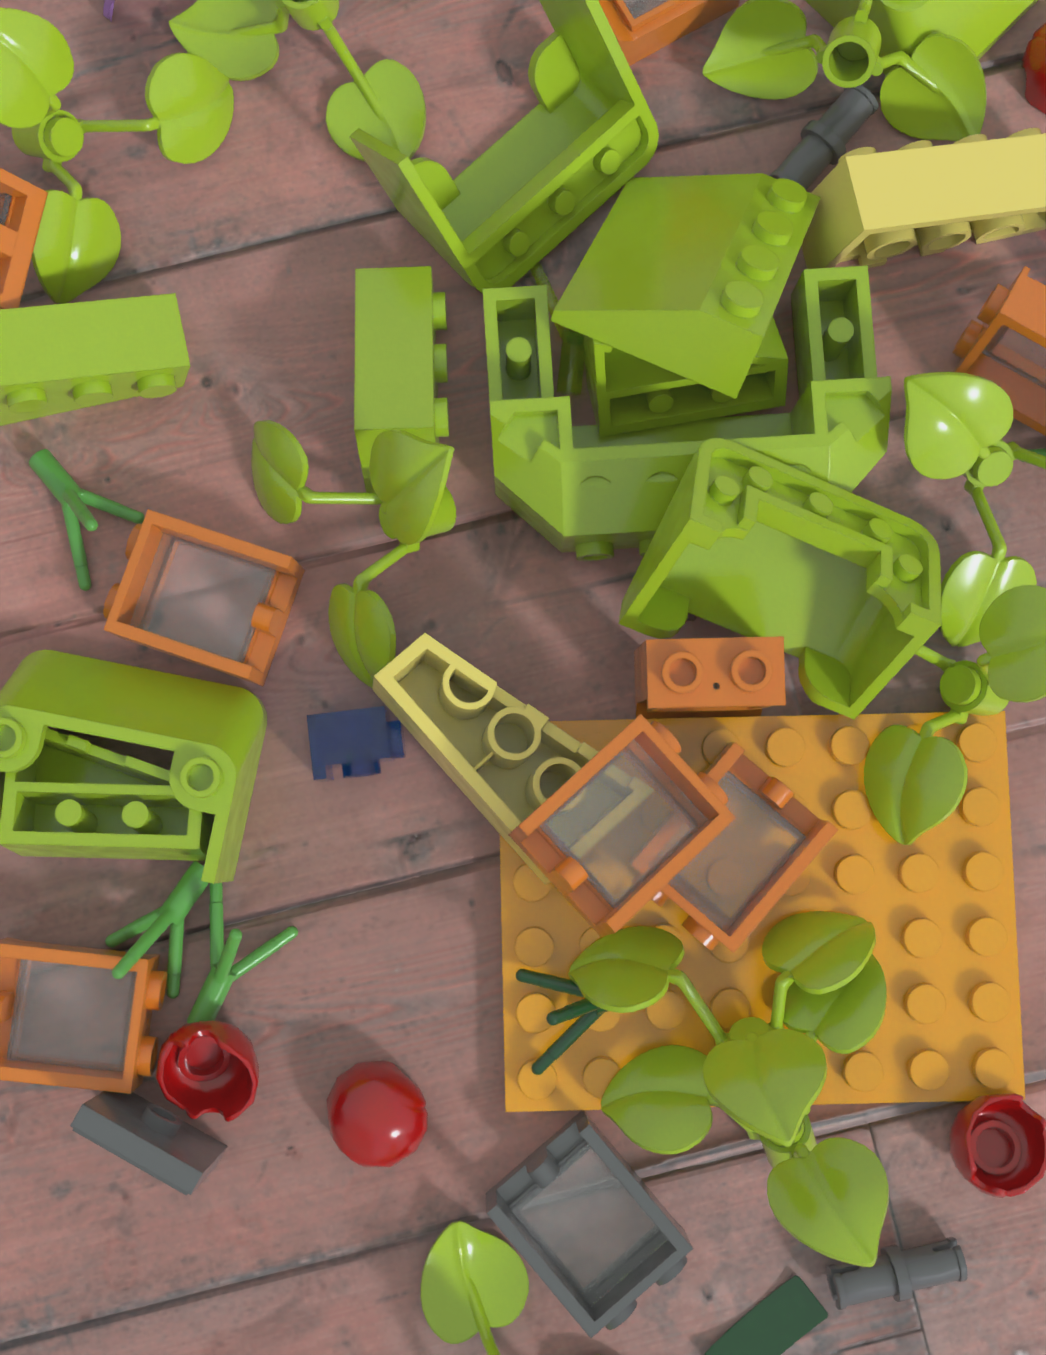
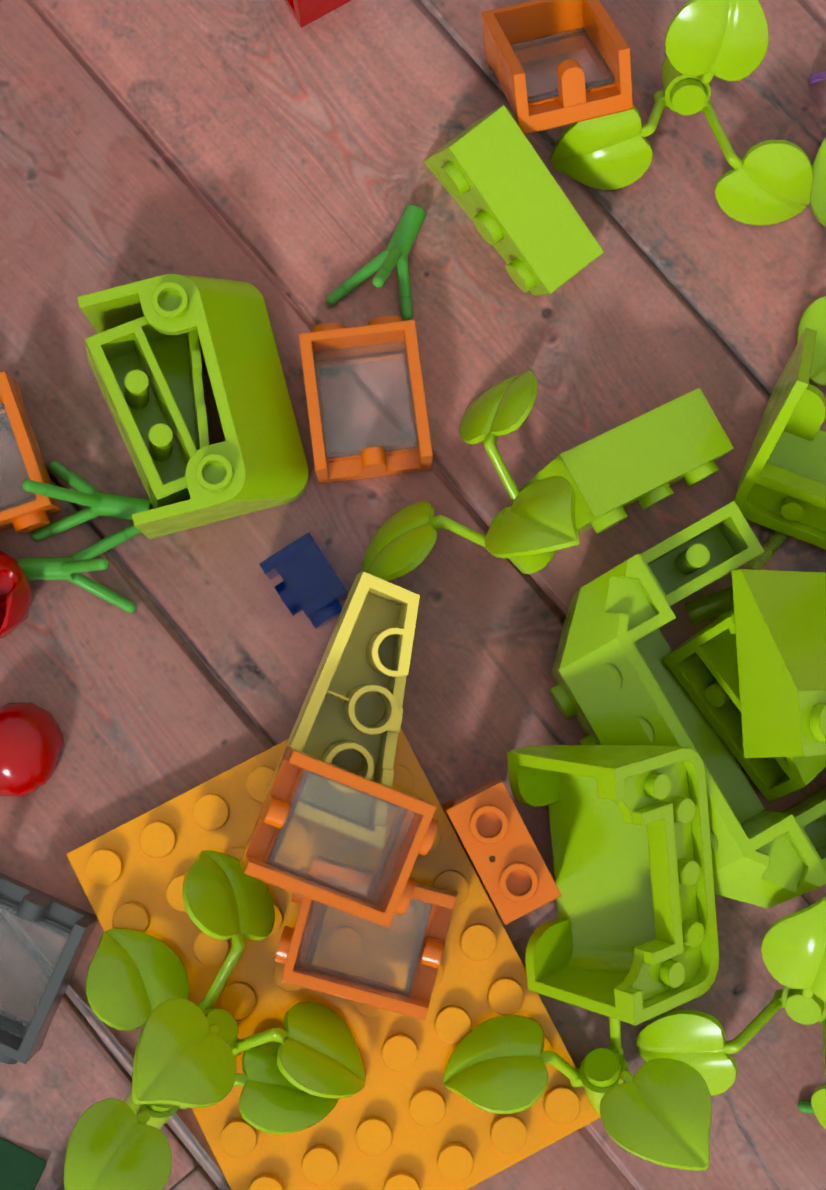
camera: 60 degrees right, 0 degrees up
(587, 1011) = (174, 880): dark green plant -> none

